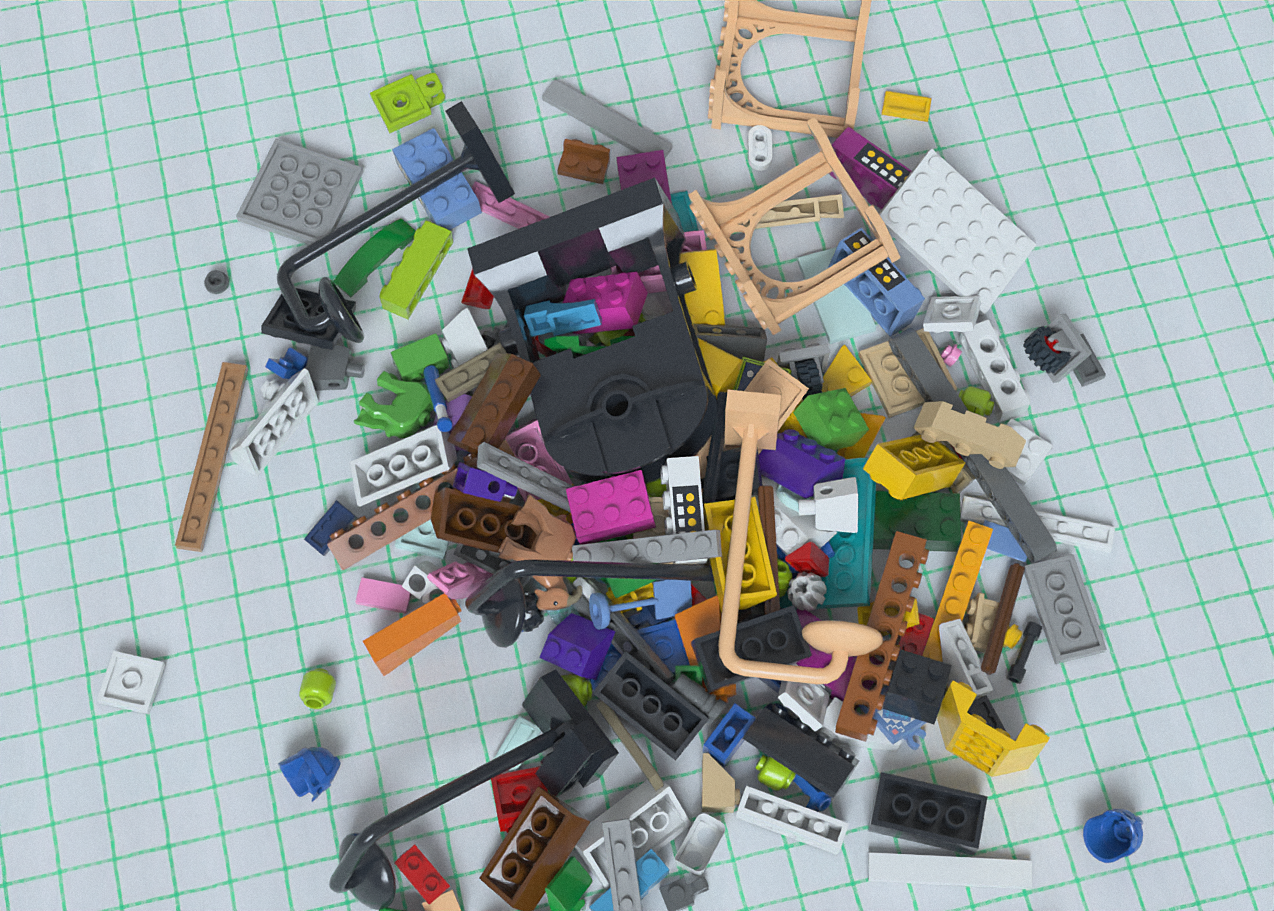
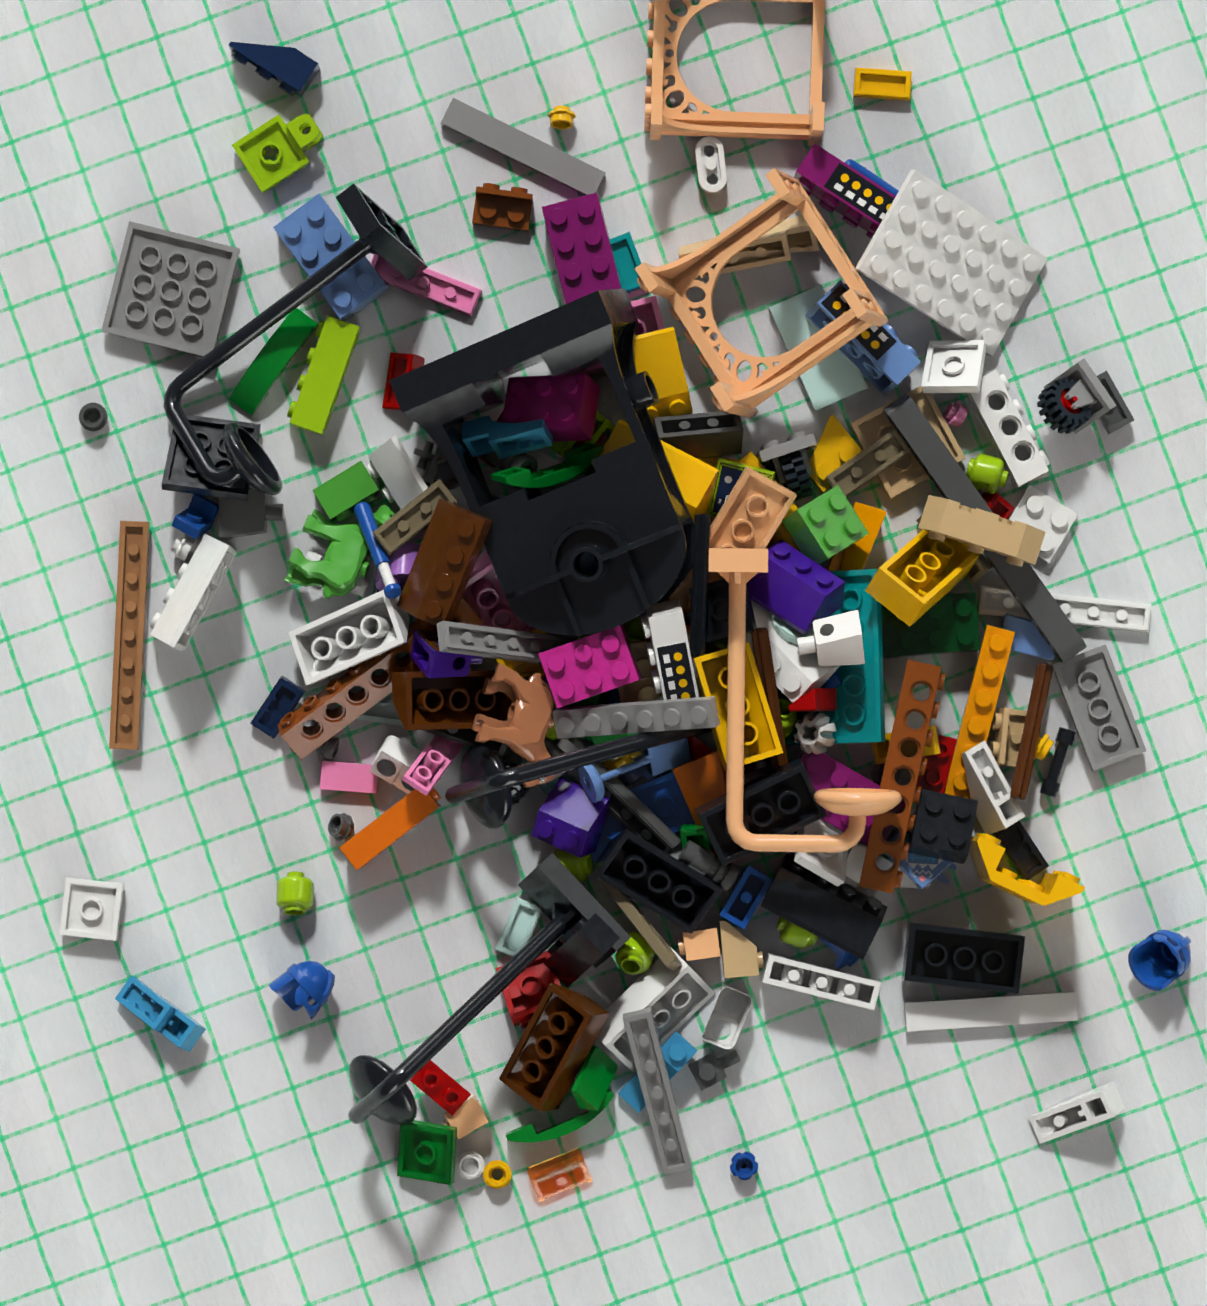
camera: 10 degrees left, 20 degrees up
(175, 783) = (160, 1014): none -> dark azure slope
(367, 631) = (340, 826): none -> dark grey plate
(369, 567) = (329, 748): none -> dark grey plate
(420, 40) = (284, 64): none -> dark blue slope
(621, 775) = (635, 955): none -> lime head
(641, 102) = (561, 117): none -> yellow plate
(682, 775) = (699, 944): none -> light nougat brick
(876, 381) = (869, 463): none -> dark tan tile

